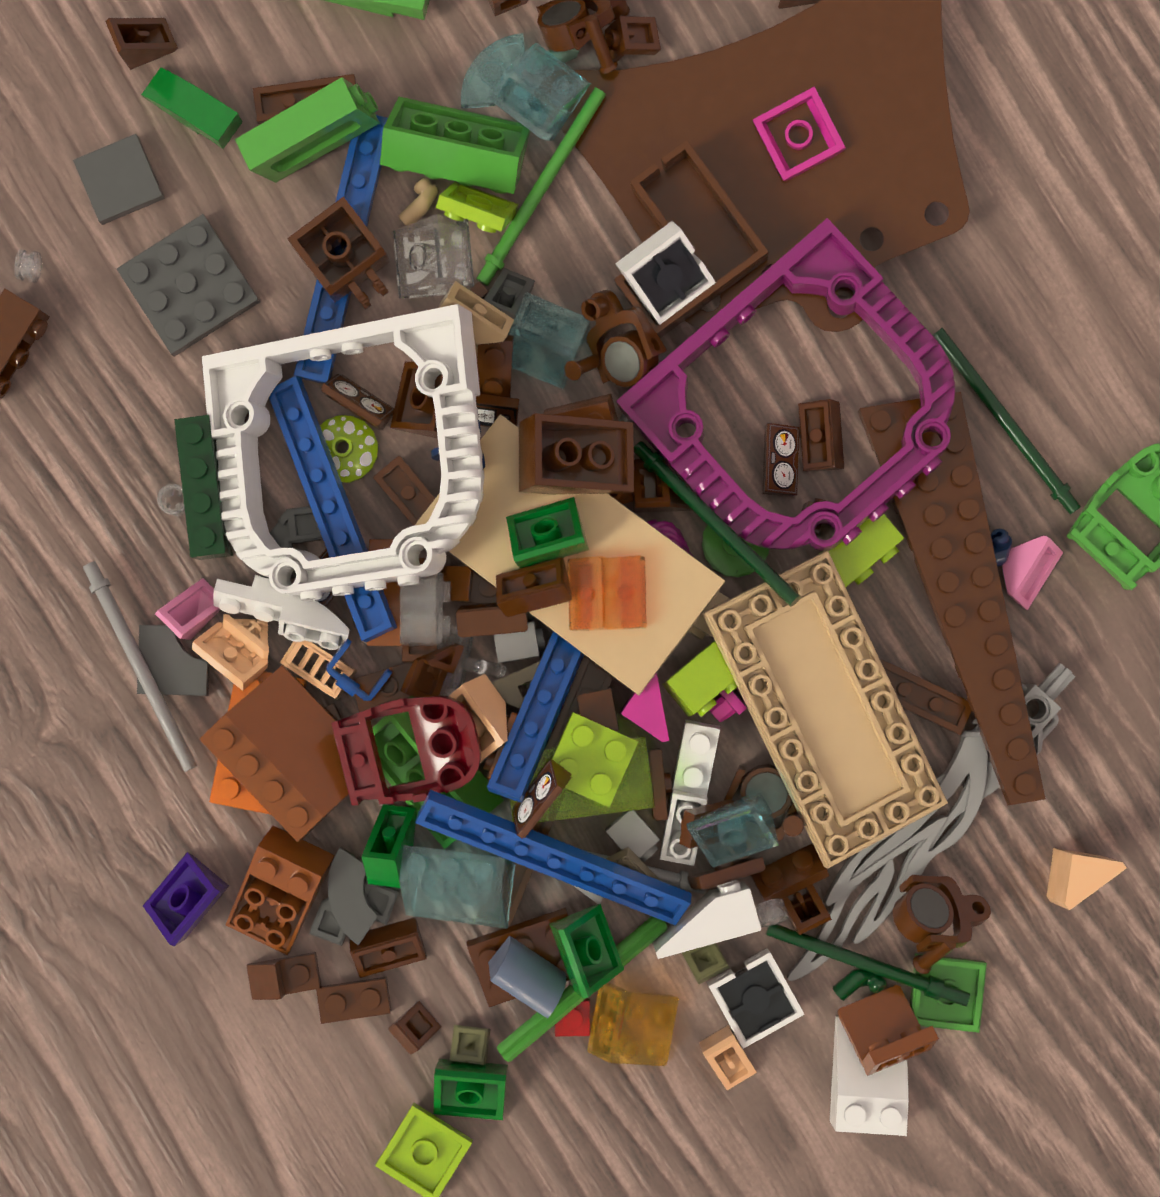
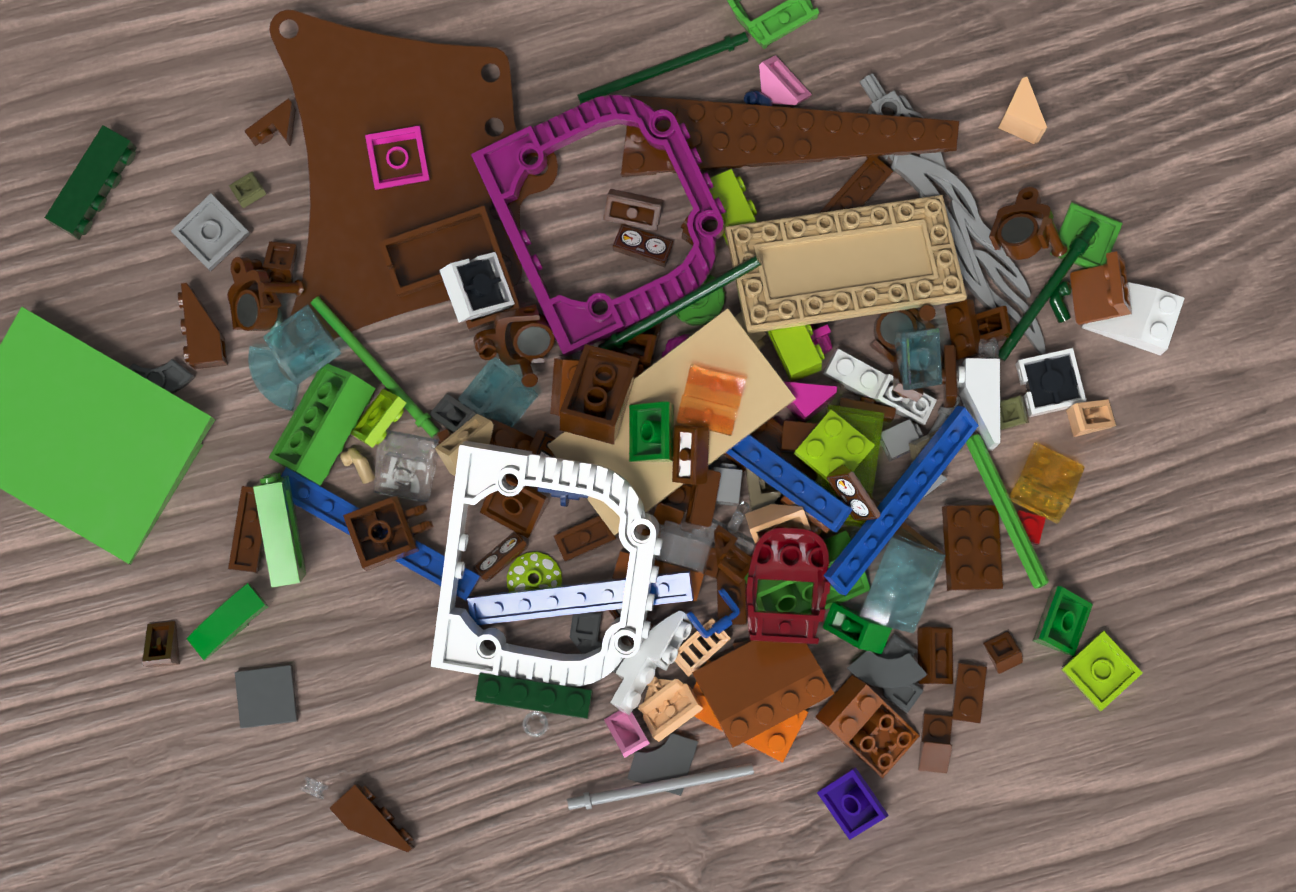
camera: 65 degrees left, 5 degrees down
(188, 285) = (367, 665): dark grey plate -> none
(470, 1044) = (1027, 611): olive tile -> none
(527, 976) = (986, 547): sand blue brick -> none
(587, 949) = (978, 497): green slope -> none

